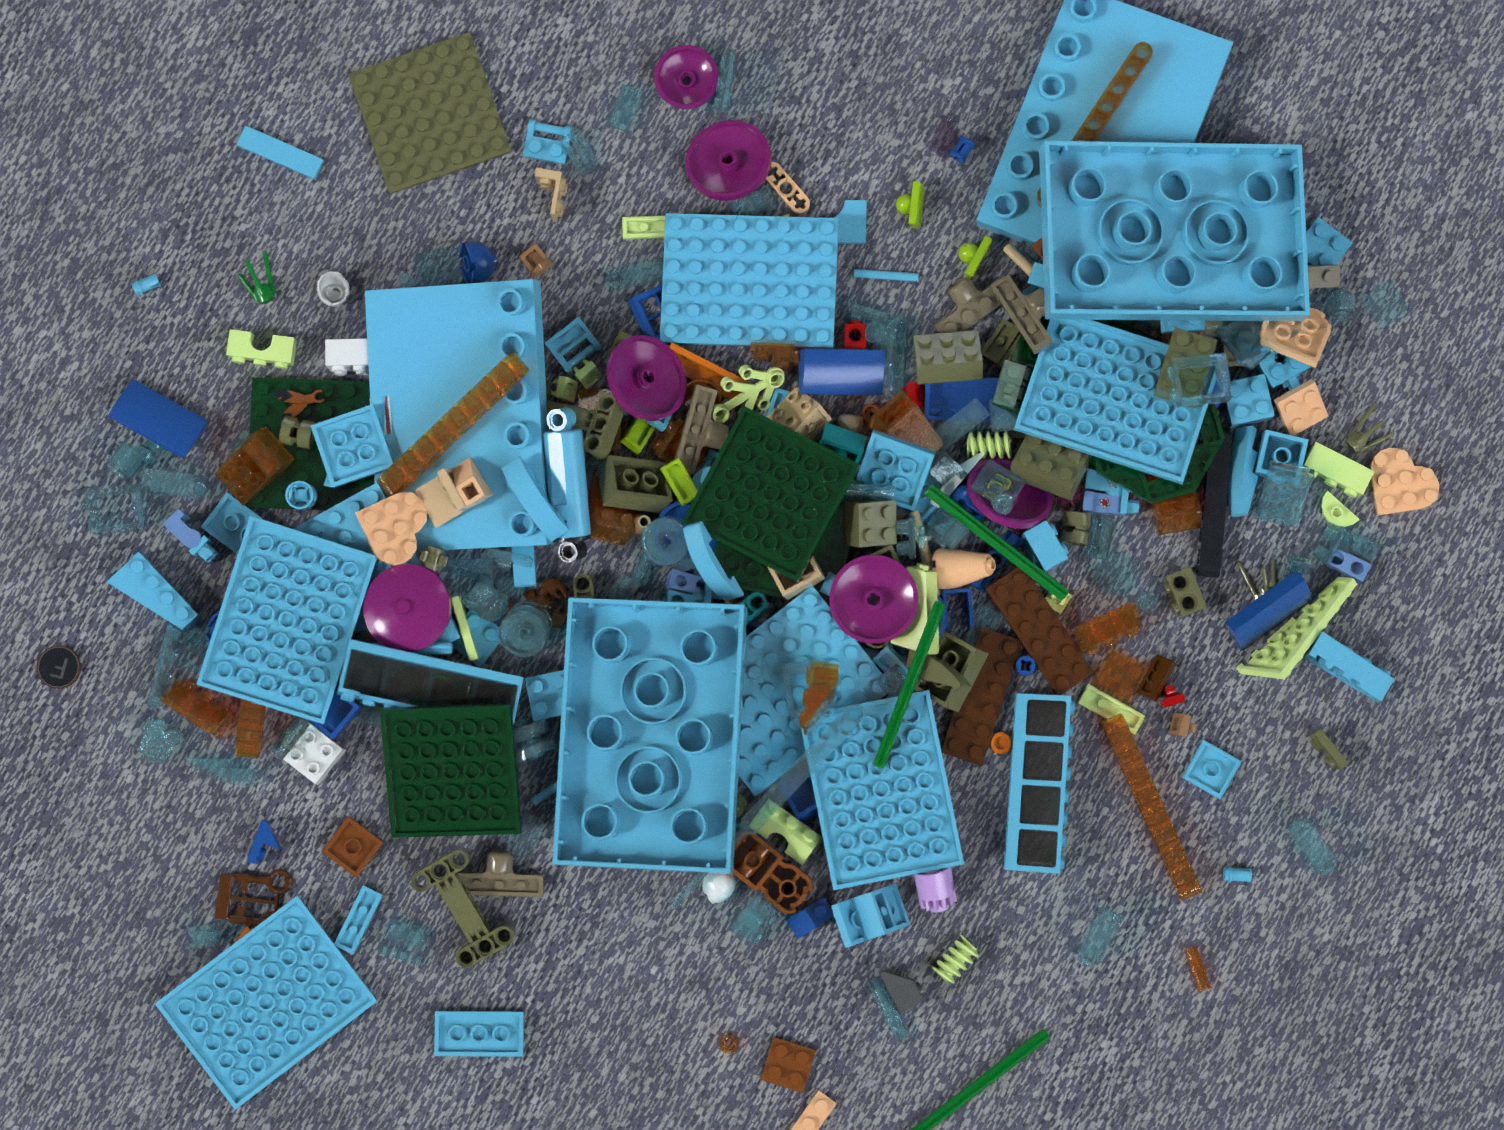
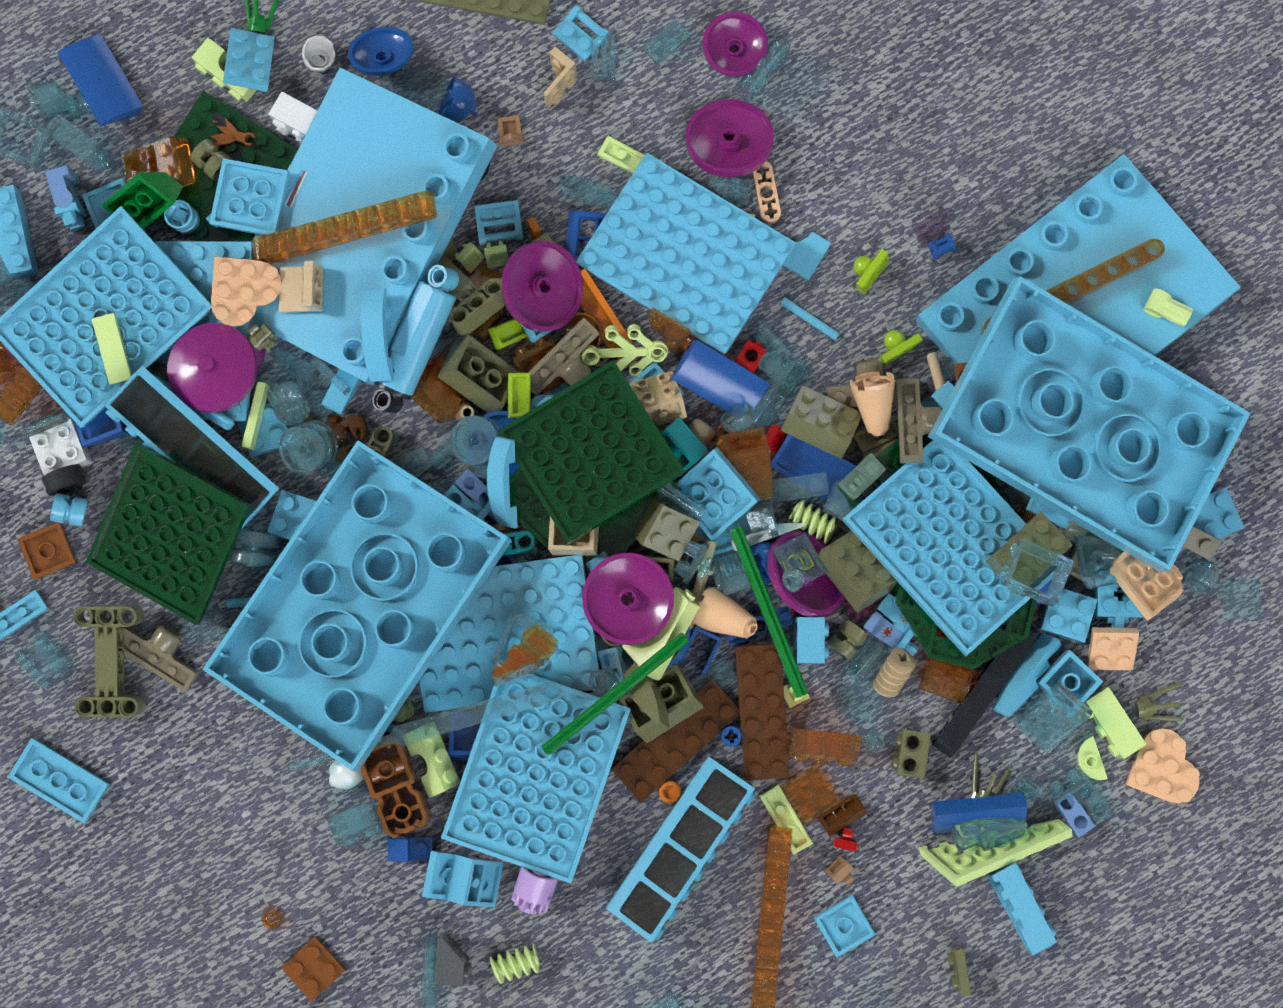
camera: 25 degrees right, 0 degrees up
(264, 496) = (145, 196): none -> green slope
(277, 328) = (248, 60): none -> medium azure plate
(313, 640) = (112, 348): none -> yellowish green tile
(332, 777) = (64, 479): none -> black tyre
(353, 800) = (68, 510): none -> medium azure wheel
(386, 255) = (380, 51): none -> blue dish
(470, 483) = (330, 289): light nougat slope -> none
(605, 333) = (533, 228): none -> orange tile
(876, 395) = (737, 419): none -> clear light blue hair
(981, 313) = (874, 400): none -> light nougat cone
(1131, 533) = (894, 673): none -> tan piece
(1176, 96) = (1162, 305): none -> yellowish green piece
(1285, 621) = (987, 832): none -> clear light blue slope

